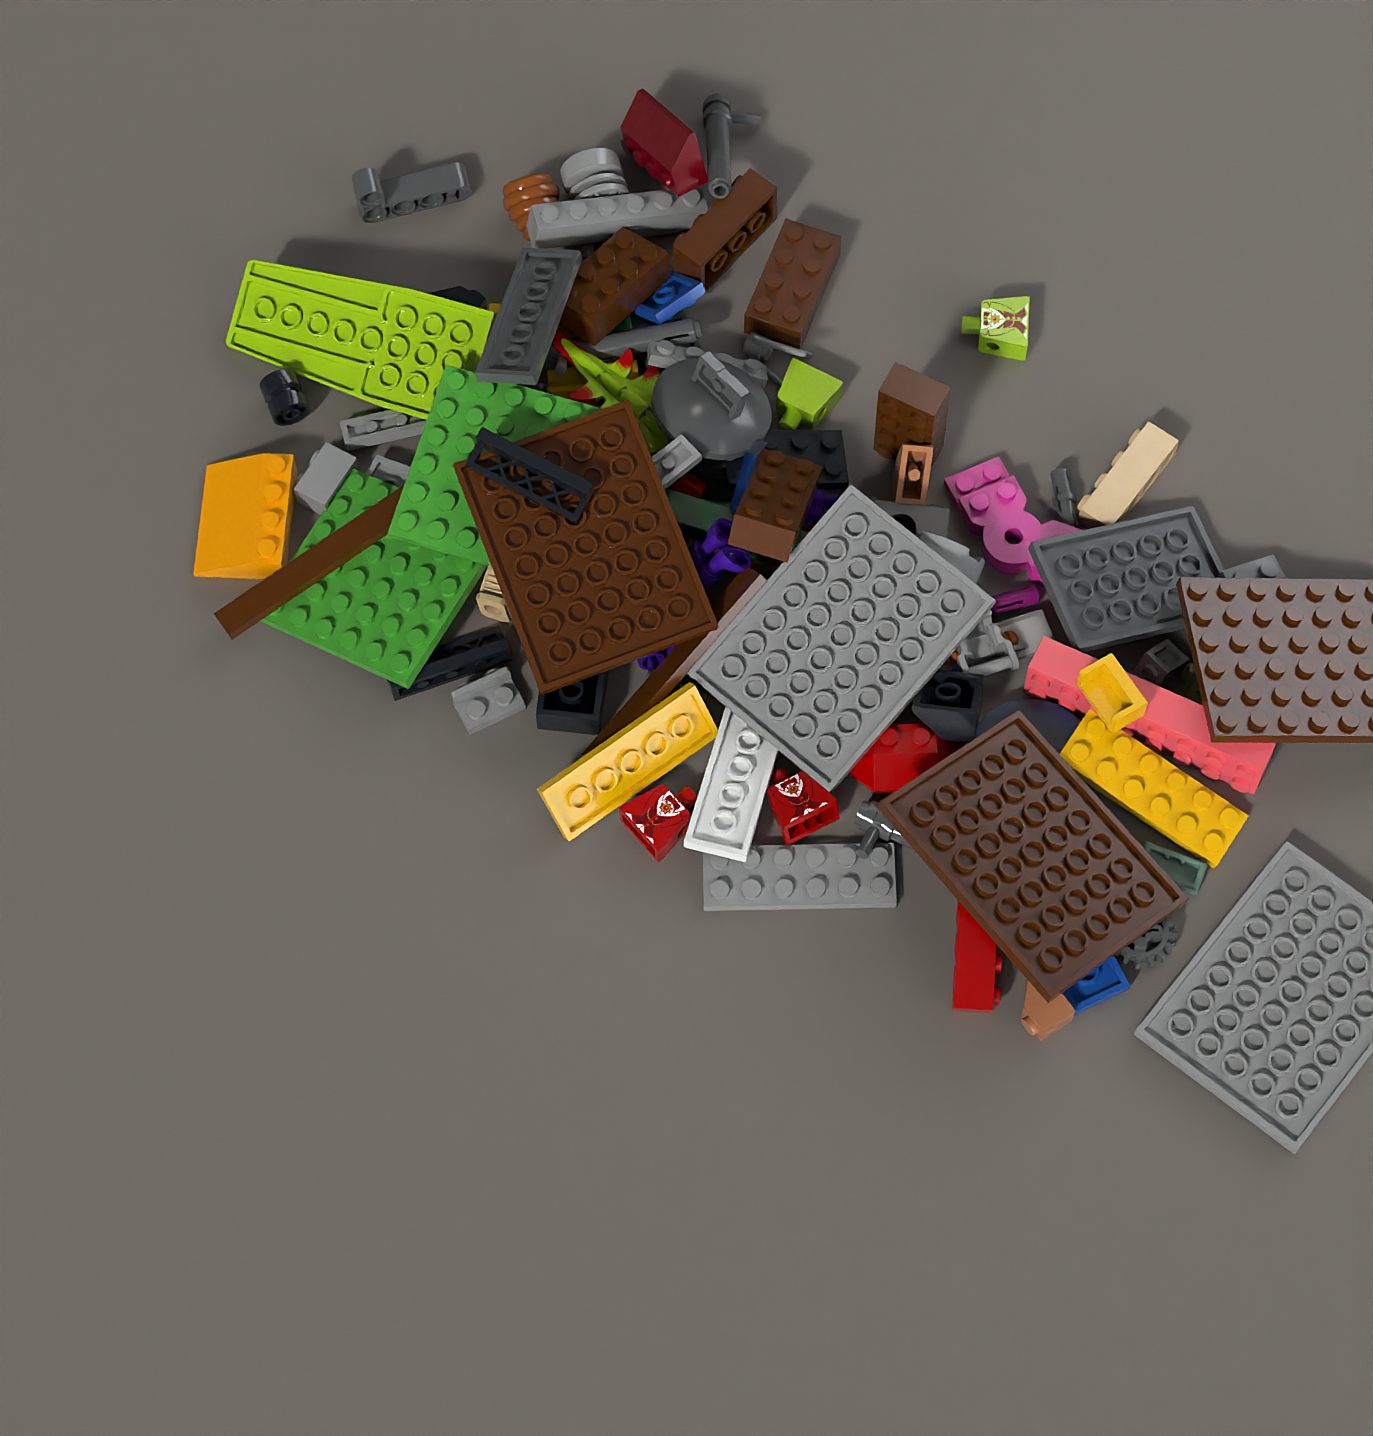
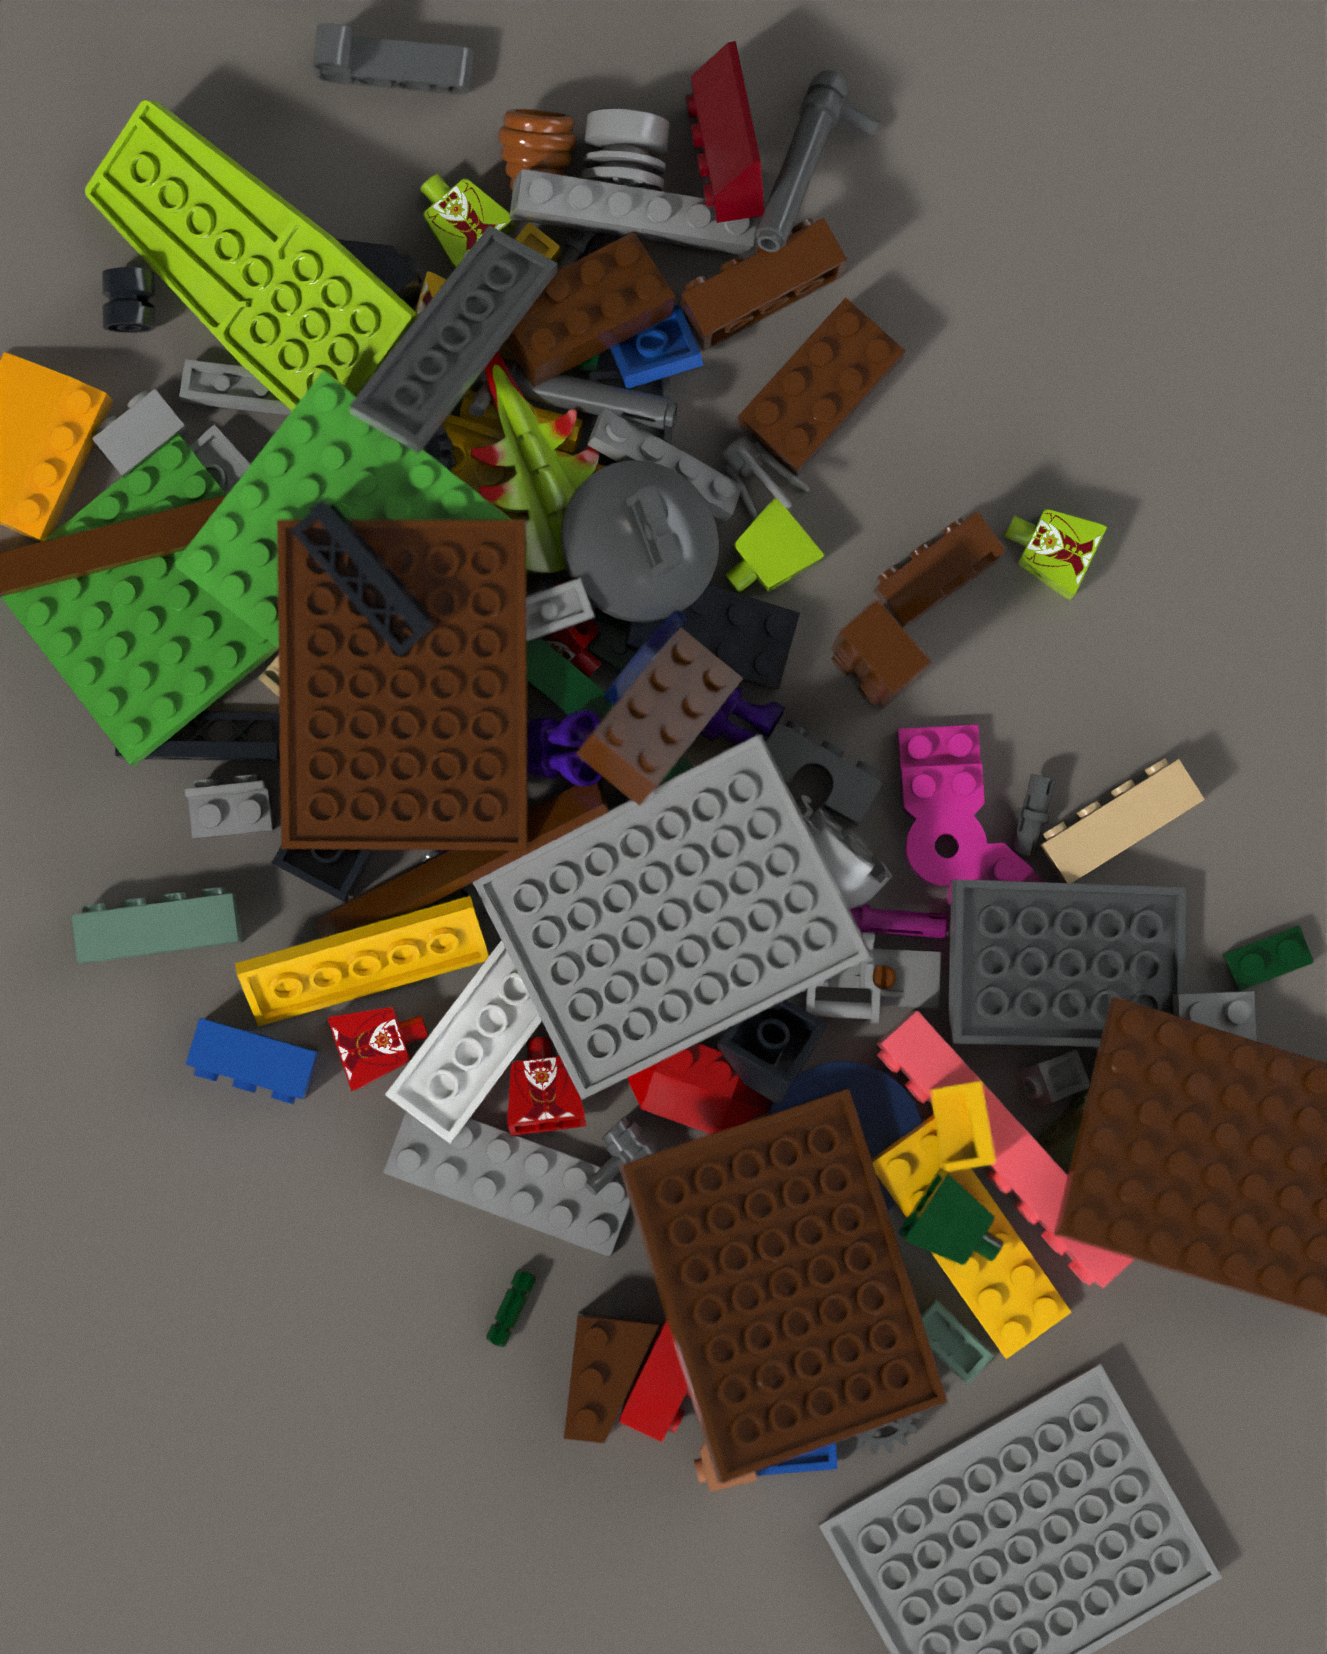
camera: 15 degrees right, 20 degrees up
(467, 798) = (156, 927): none -> sand green brick
(493, 267) = (461, 216): none -> lime torso
(574, 862) = (251, 1060): none -> blue brick
(838, 967) = (511, 1308): none -> dark green axle
(912, 474) = (852, 725): nougat slope -> none
(925, 981) = (603, 1368): none -> reddish brown wedge
(938, 346) = (939, 569): none -> reddish brown wedge
(1134, 769) = (950, 1222): none -> dark green torso
(1272, 533) = (1268, 958): none -> dark green plate

